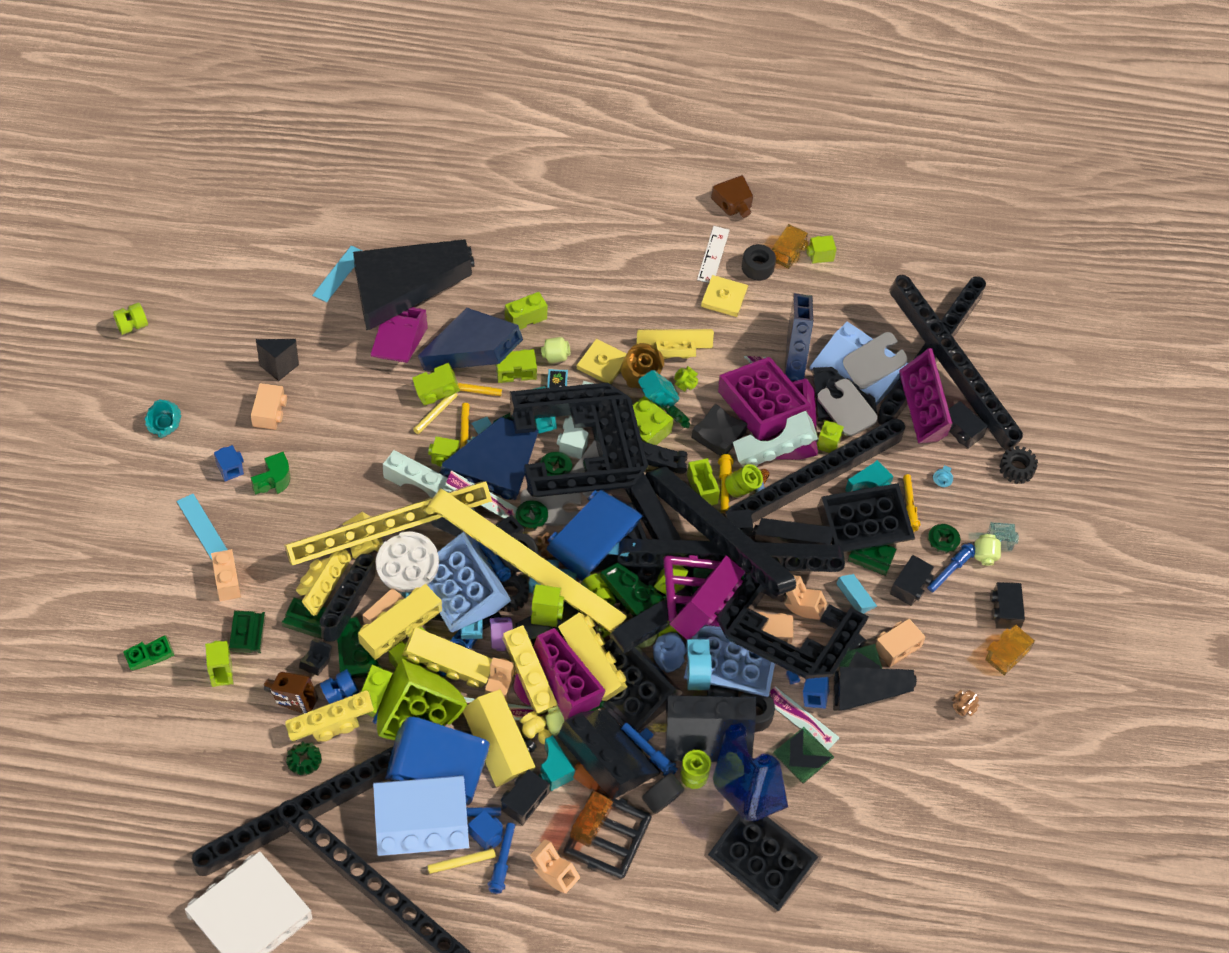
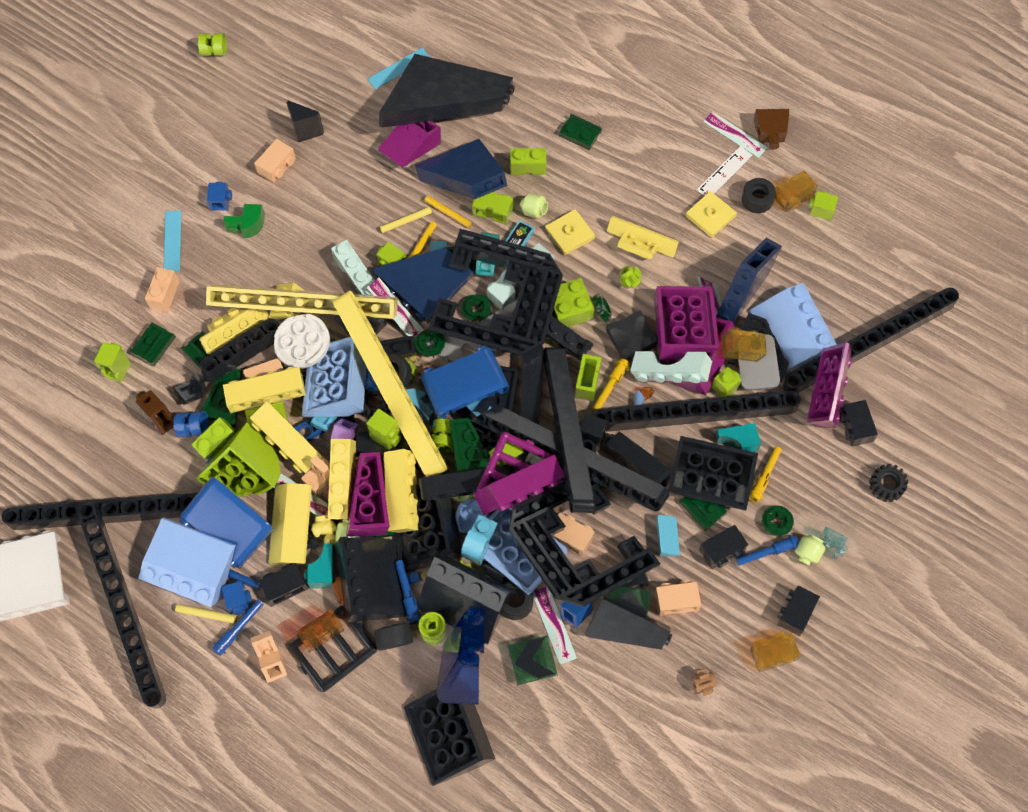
camera: 35 degrees right, 10 degrees up
(148, 654) = (69, 329): green slope -> none
(163, 418) = (189, 138): teal hair -> none
(307, 766) = (132, 476): dark green gear -> none
(330, 719) = (167, 447): light yellow bracket -> none
(436, 385) = (416, 197): lime brick -> none
(557, 267) = (580, 132): none -> dark green plate
(640, 361) = (600, 259): pearl gold brick -> none
(658, 389) = (597, 277): teal brick -> none
(702, 217) = (735, 134): none -> sticker
(743, 481) = (624, 390): lime wheel -> none
(805, 601) = (615, 522): light nougat brick -> none
(830, 394) = (744, 345): none -> clear yellow brick
(871, 364) = (801, 331): light grey piece -> none
(943, 477) = (809, 463): medium azure plate -> none
(955, 362) = (877, 369): black beam -> none

